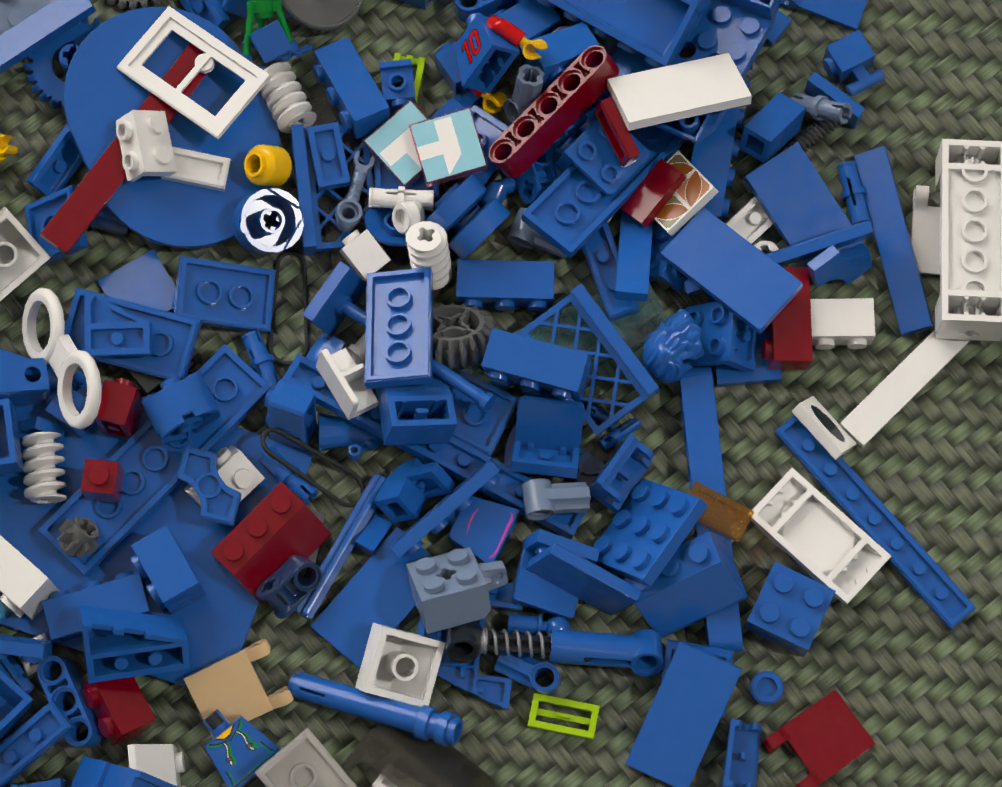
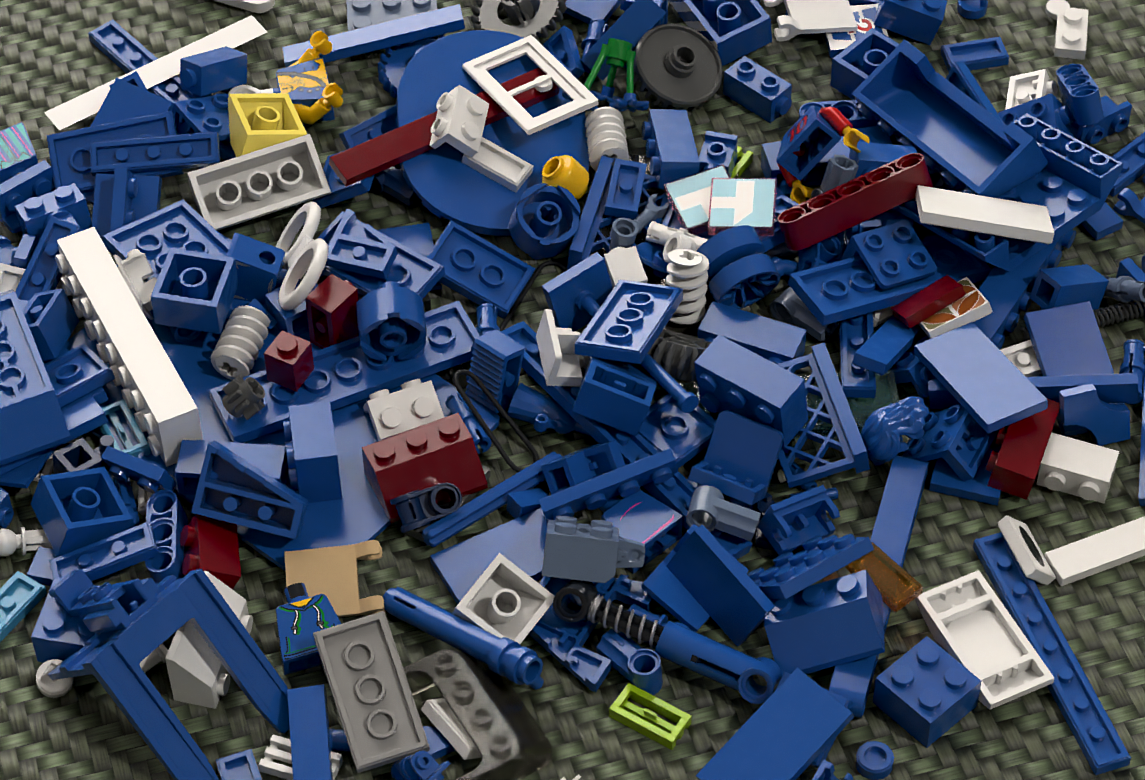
camera: 20 degrees right, 25 degrees down
(217, 500) = (389, 410): blue tile -> none
(270, 41) = (611, 82): blue tile -> none
(616, 132) = (909, 230): dark red tile -> none

